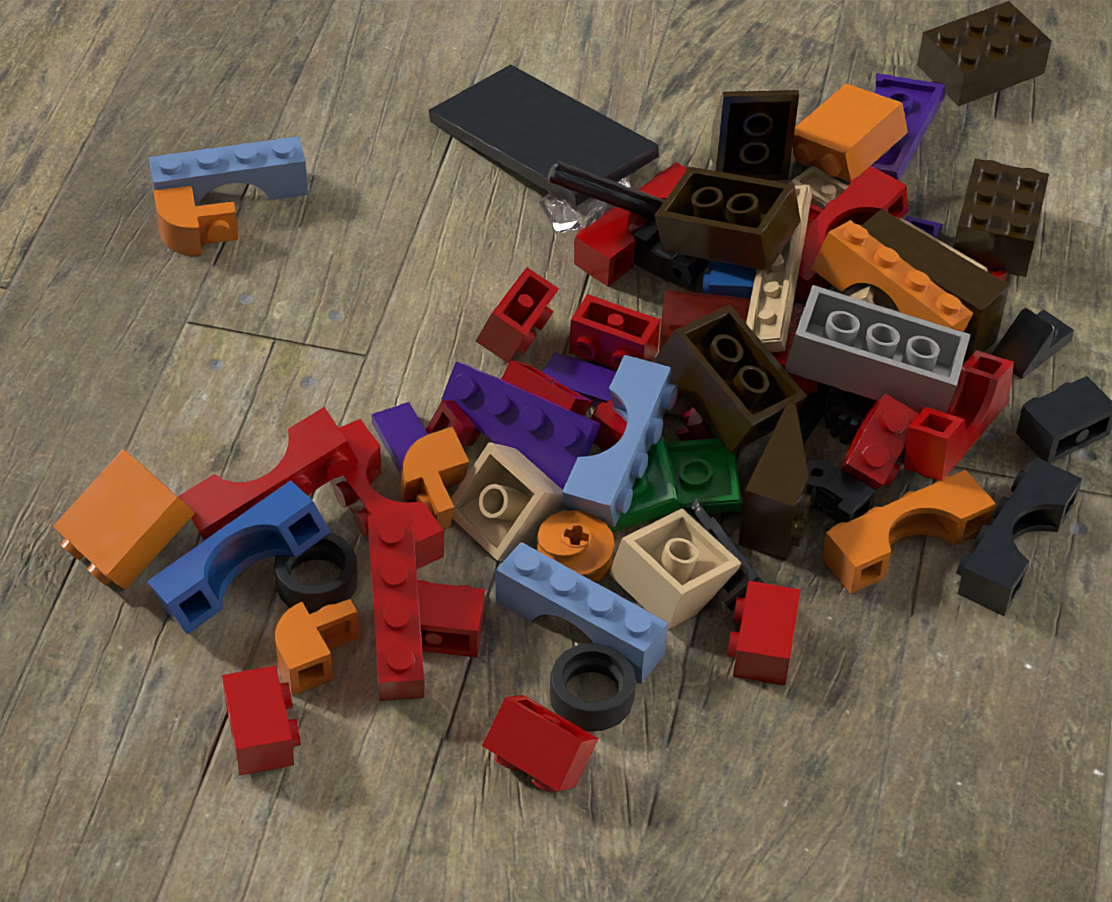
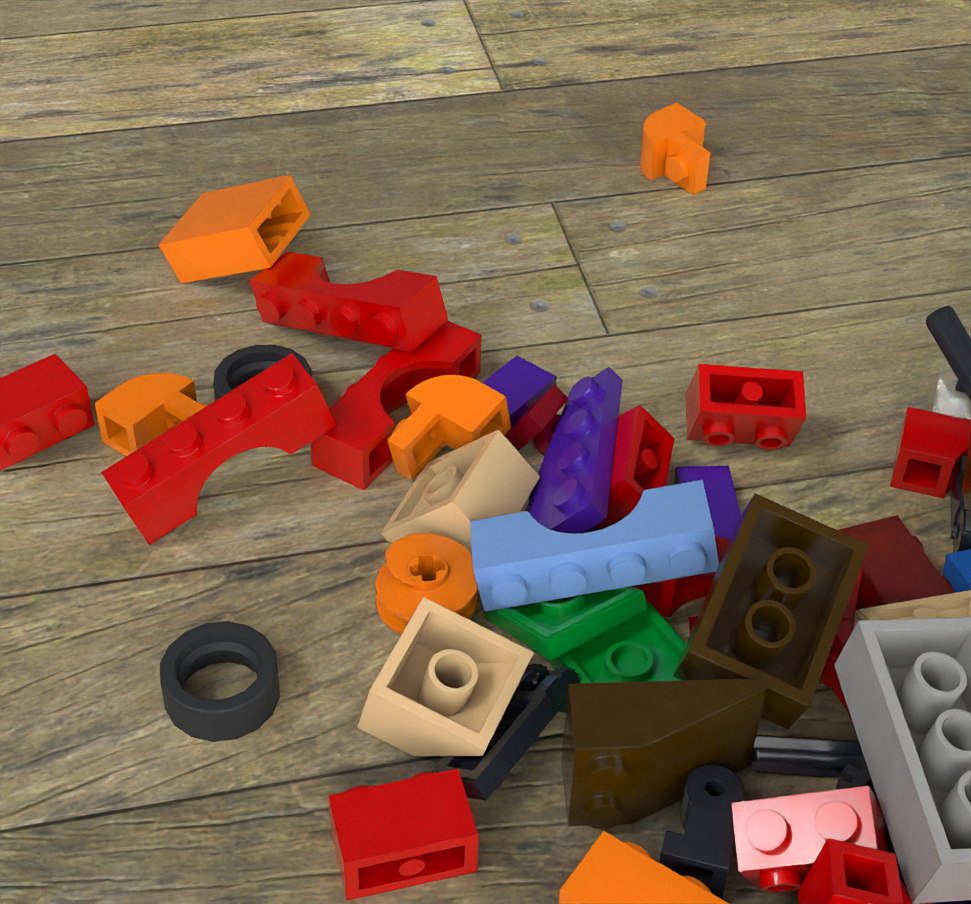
camera: 65 degrees right, 5 degrees down
(271, 165) = (794, 167): medium blue arch -> none
(276, 526) = (268, 317): blue arch -> none
(451, 618) = (253, 508): red brick -> none
(539, 586) = (310, 659): medium blue arch -> none
(539, 743) = (90, 651): red brick -> none
(609, 331) = (784, 473): red brick -> none

